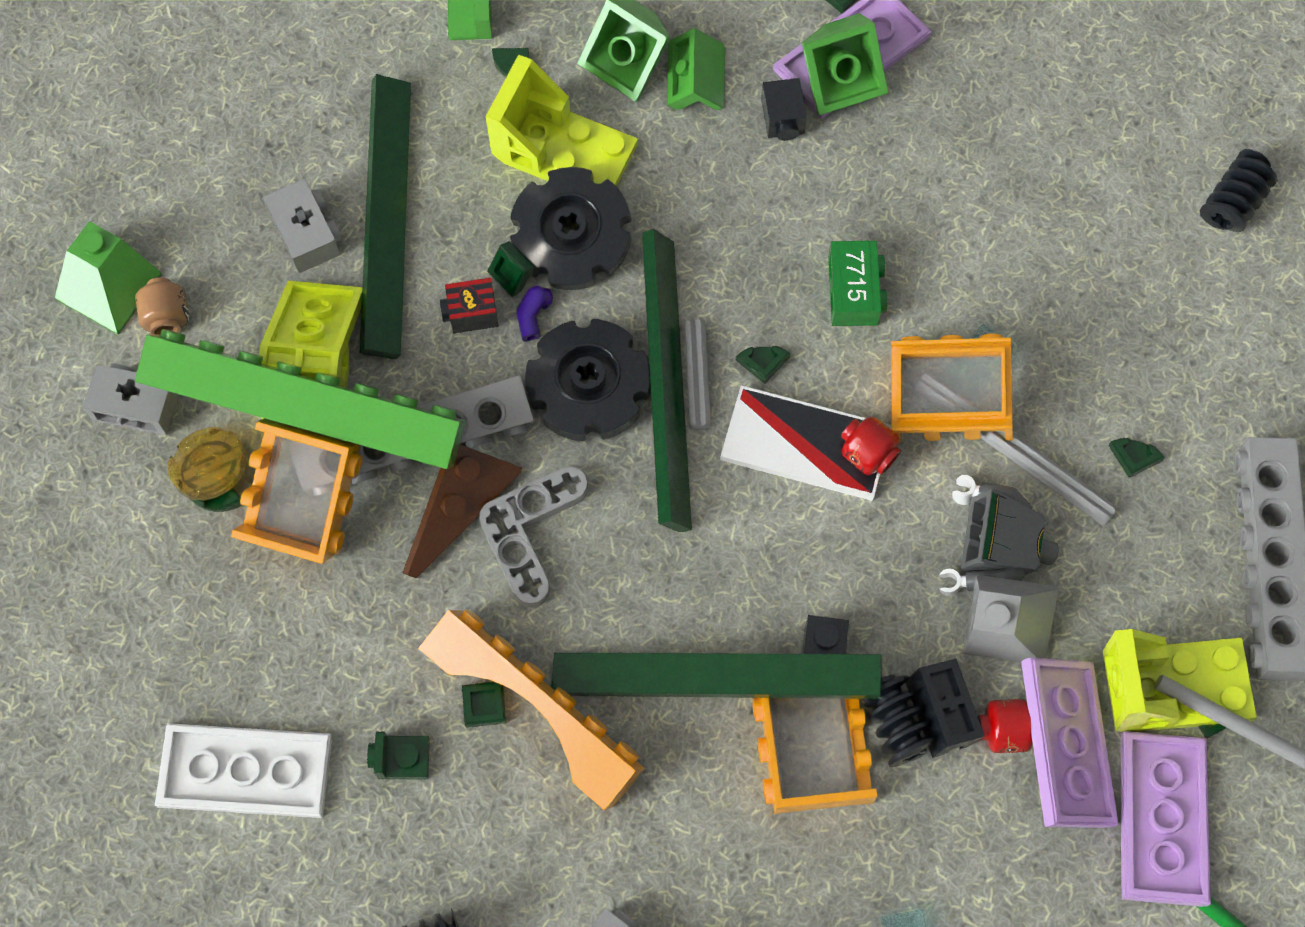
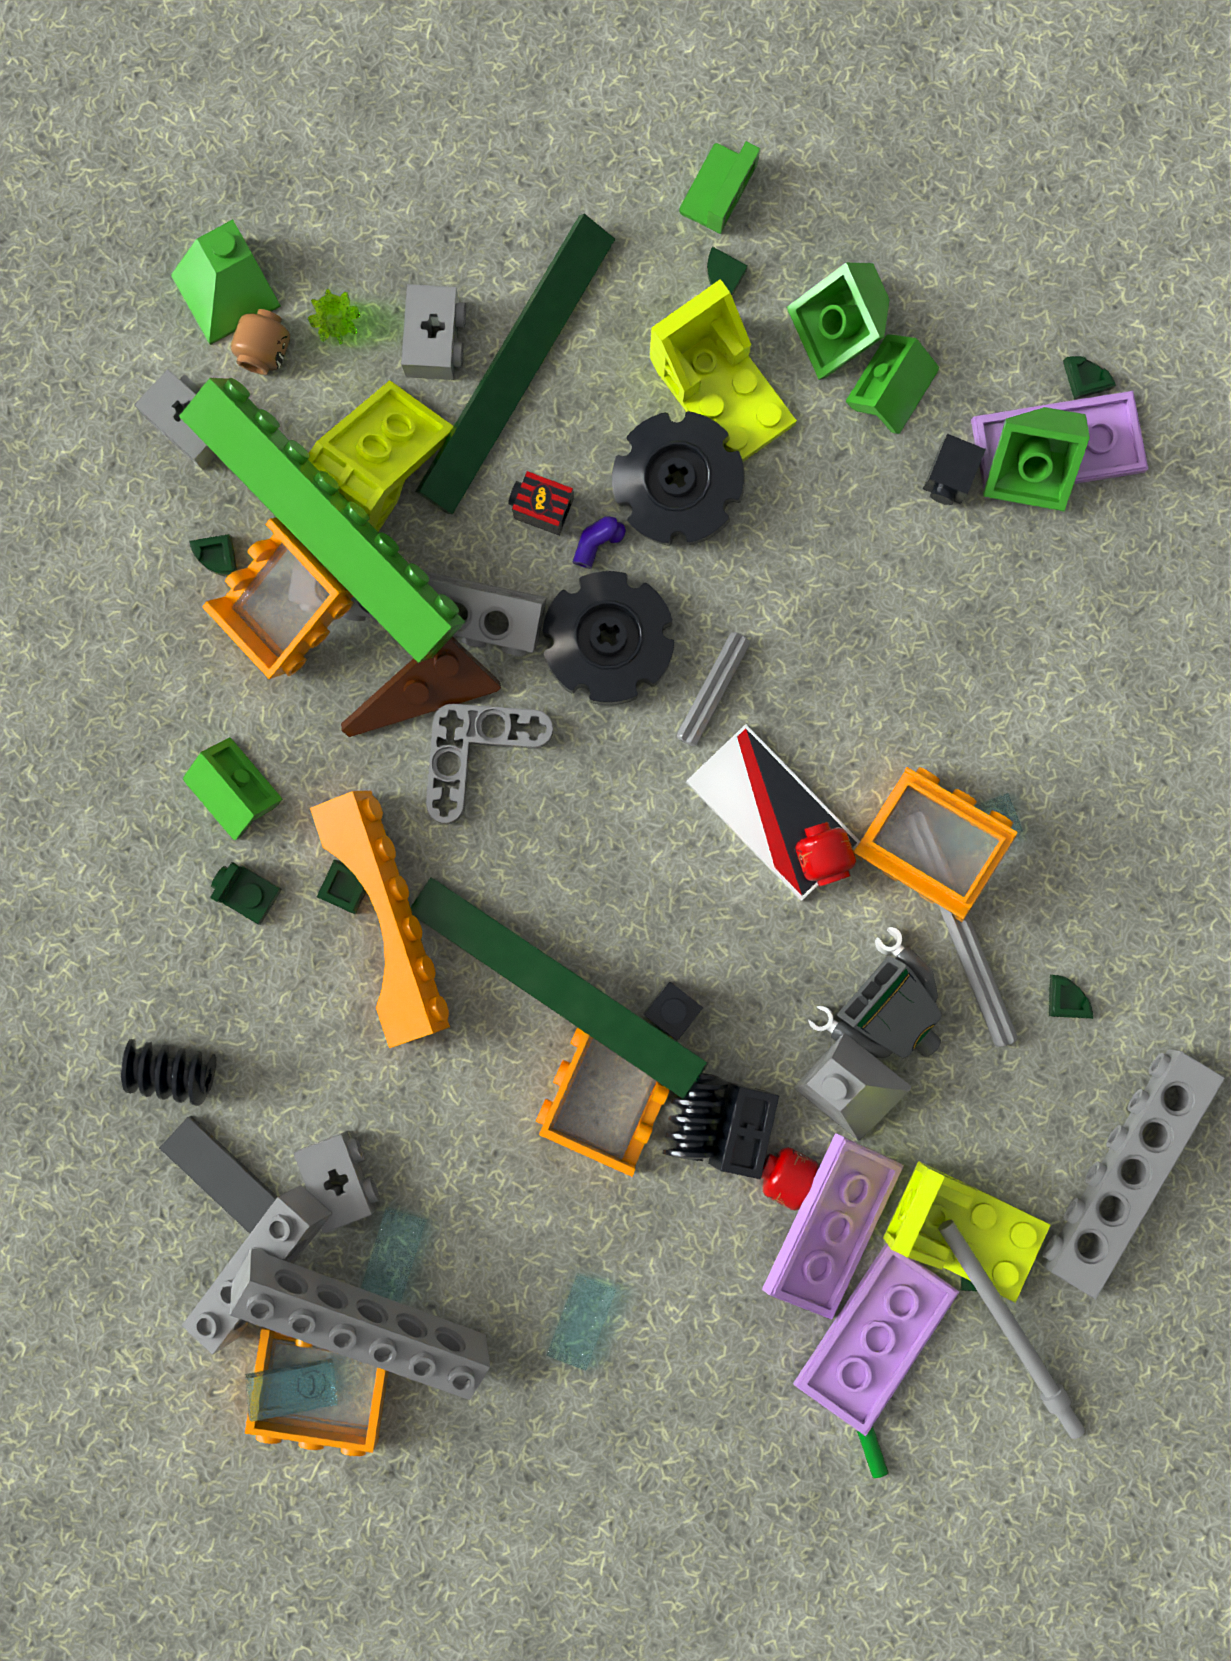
camera: 30 degrees right, 15 degrees up
(207, 463) = (221, 521): clear yellow tile -> none
(213, 255) = (335, 326): none -> clear neon green gear
(244, 770) = (106, 825): white tile -> none
(337, 677) = (231, 787): none -> bright green panel
(510, 268) = (599, 487): dark green tile -> none
(666, 382) = (680, 678): dark green tile -> none
(763, 361) = (782, 710): dark green tile -> none
(856, 283) = (912, 686): green brick -> none

